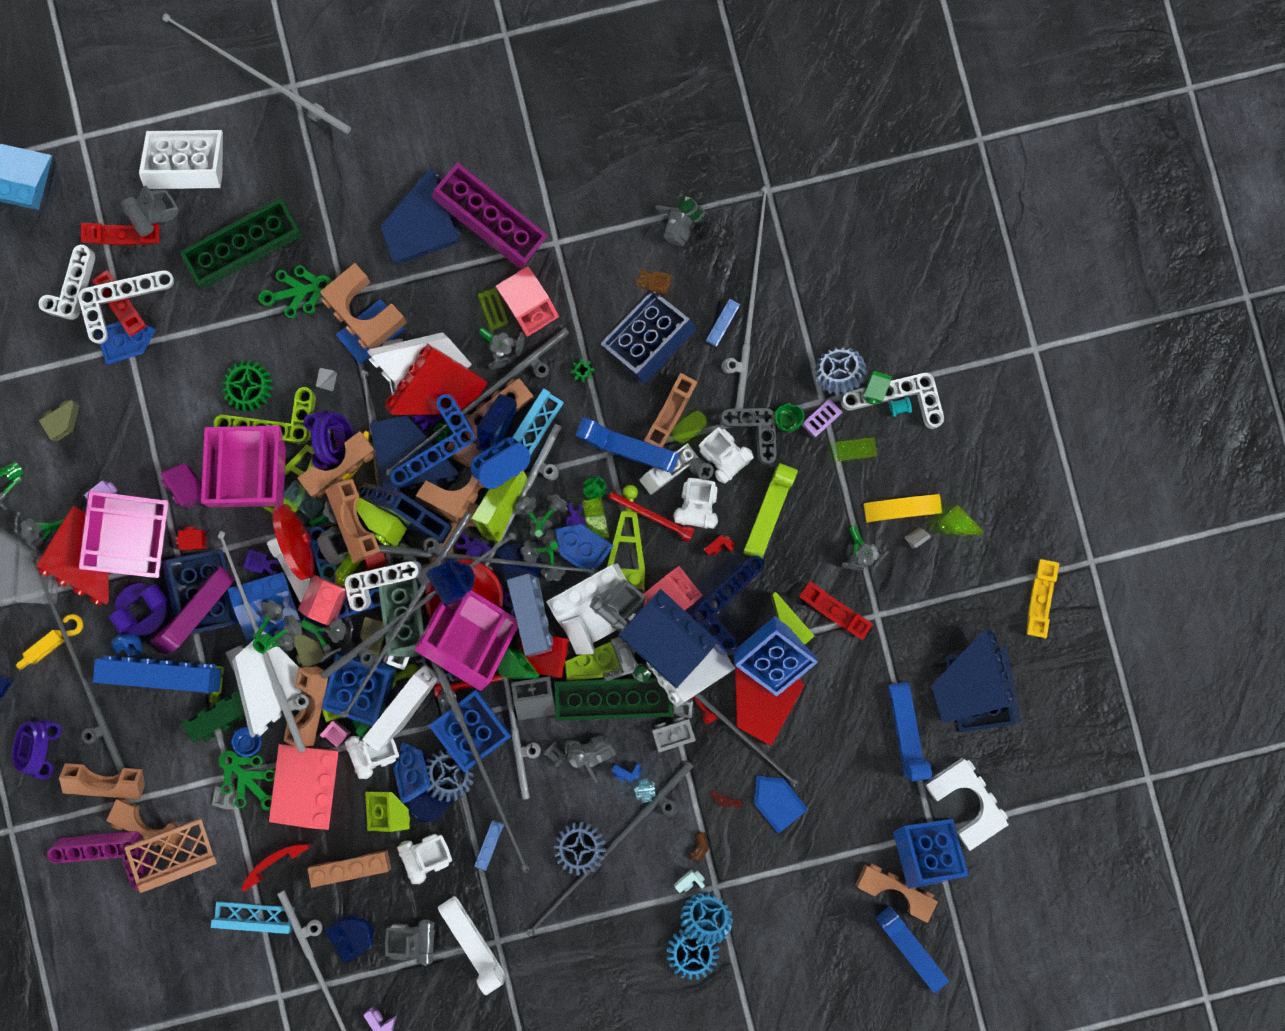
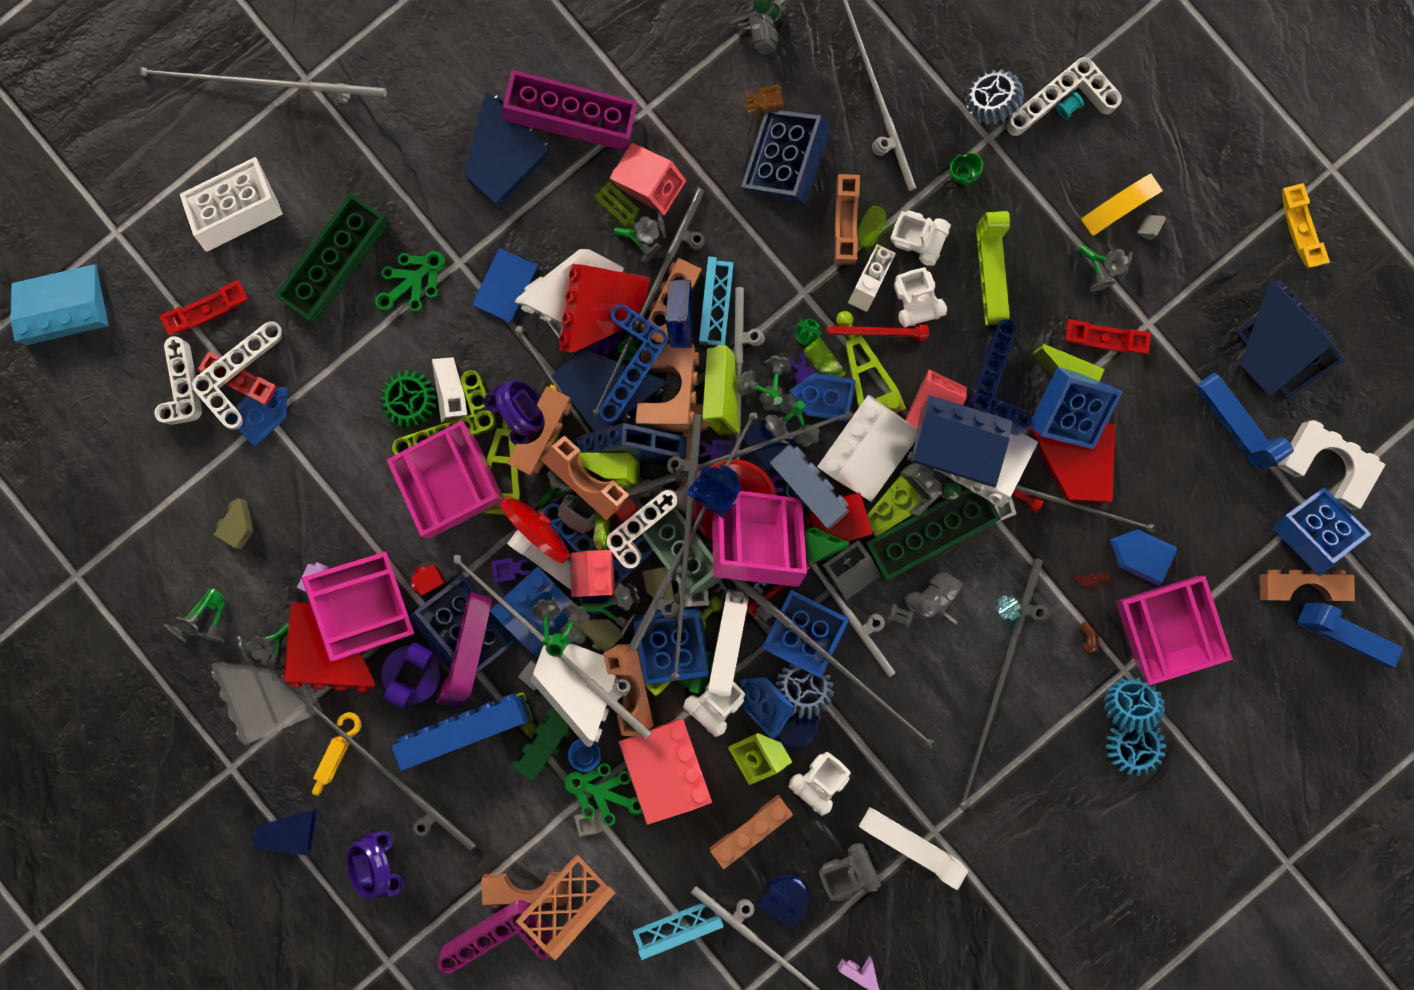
camera: 25 degrees left, 0 degrees up
(81, 781) = (436, 877): nougat arch -> none
(127, 642) = (415, 714): blue hair -> none
(149, 209) = (221, 269): dark grey piece -> none
(183, 484) = (394, 527): magenta slope -> none
(255, 876) = (686, 840): red slope -> none
(283, 394) = (449, 390): none -> white slope
(302, 500) = (521, 485): clear light blue slope -> none
(326, 379) = (484, 354): light grey slope -> none
(335, 733) = (669, 703): bright pink panel -> none
(372, 331) = (505, 284): nougat arch -> none
(489, 845) = (879, 739): medium blue piece -> none
(500, 463) = (704, 348): blue brick -> none
(578, 636) = (869, 489): white slope -> none
(579, 857) = (965, 680): sand blue gear -> none
(586, 367) = (739, 216): green gear -> none
(619, 604) = (895, 432): dark grey piece -> none
(621, 773) = (975, 603): blue bracket -> none
(626, 446) = (822, 274): blue beam -> none
(673, 734) = (1007, 538): light grey bracket -> none
(685, 882) = (1093, 677): light aqua bracket -> none
(702, 469) = (903, 261): dark grey bush -> none
(715, 546) = (956, 331): red bracket -> none
(722, 322) = (853, 107): medium blue piece -> none
(761, 426) = (942, 190): dark grey beam -> none
(769, 874) = (1174, 630): none -> dark pink slope
(807, 425) = (991, 169): lavender slope -> none
(856, 449) = (1047, 168): clear neon green slope -> none
(876, 387) = (1042, 93): slope -> none
(959, 523) = (1185, 191): clear neon green slope -> none

